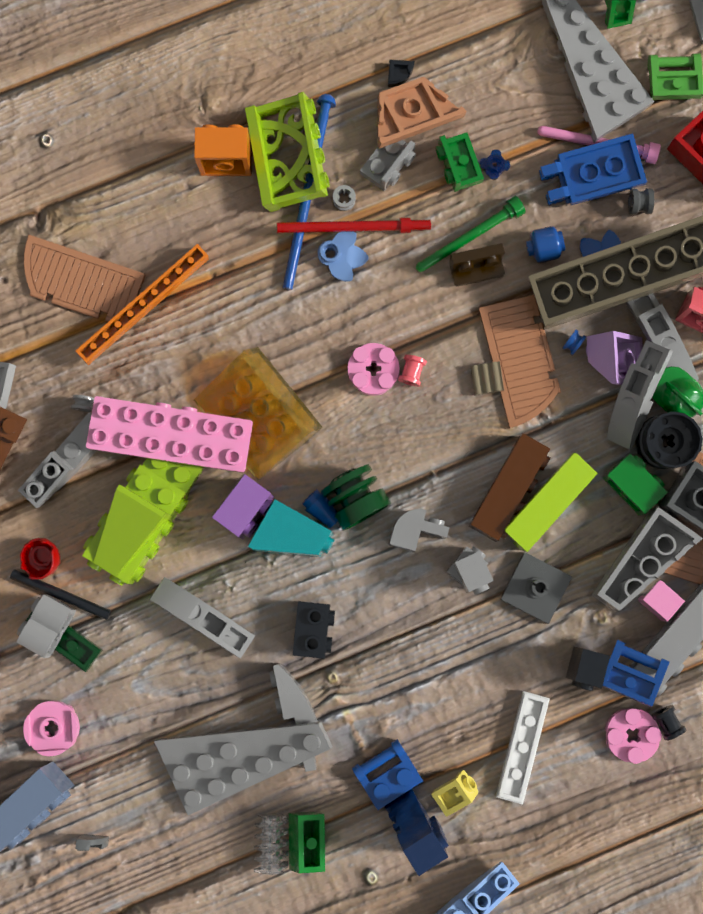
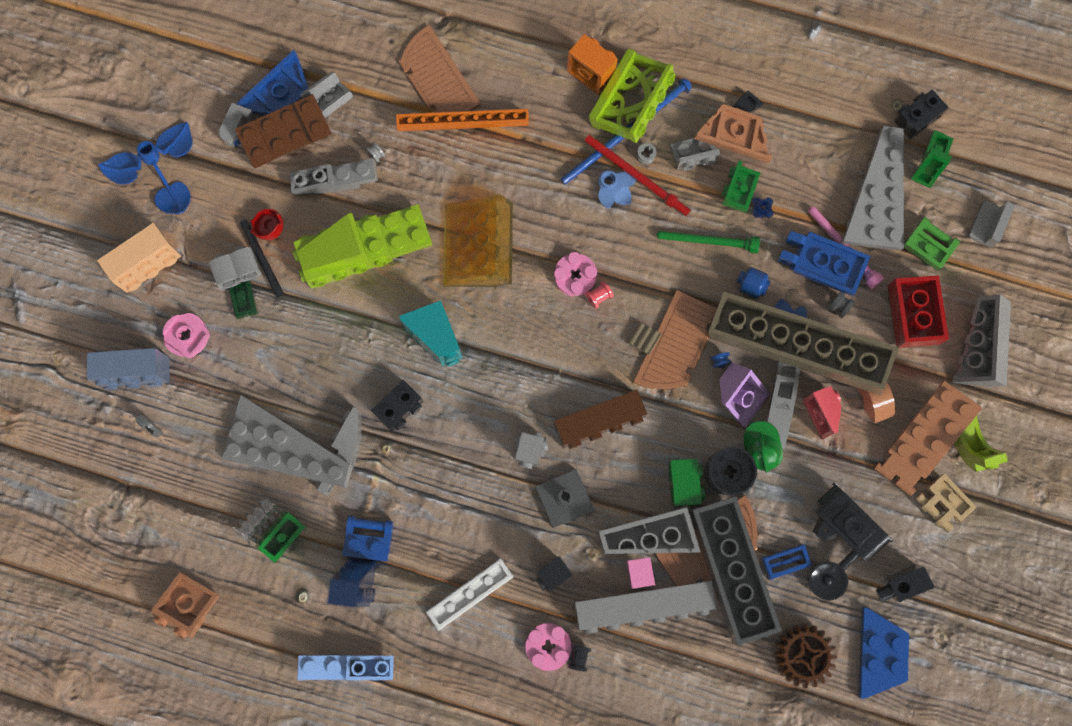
camera: 35 degrees right, 5 degrees down
(169, 434) = (411, 211): bright pink bracket -> none
(202, 617) = (335, 342): light grey slope -> none
(244, 507) = (417, 291): medium lavender brick -> none
(318, 507) = (467, 333): blue cone -> none
(355, 497) = (495, 339): dark green wheel -> none
(408, 529) = (516, 391): light grey brick -> none
(455, 793) = (401, 586): light yellow bracket -> none
(477, 265) = (697, 260): dark brown bracket -> none
(550, 502) = (618, 448): lime panel -> none
(631, 681) = (574, 607): blue plate -> none
(635, 394) = (731, 423): light grey slope -> none

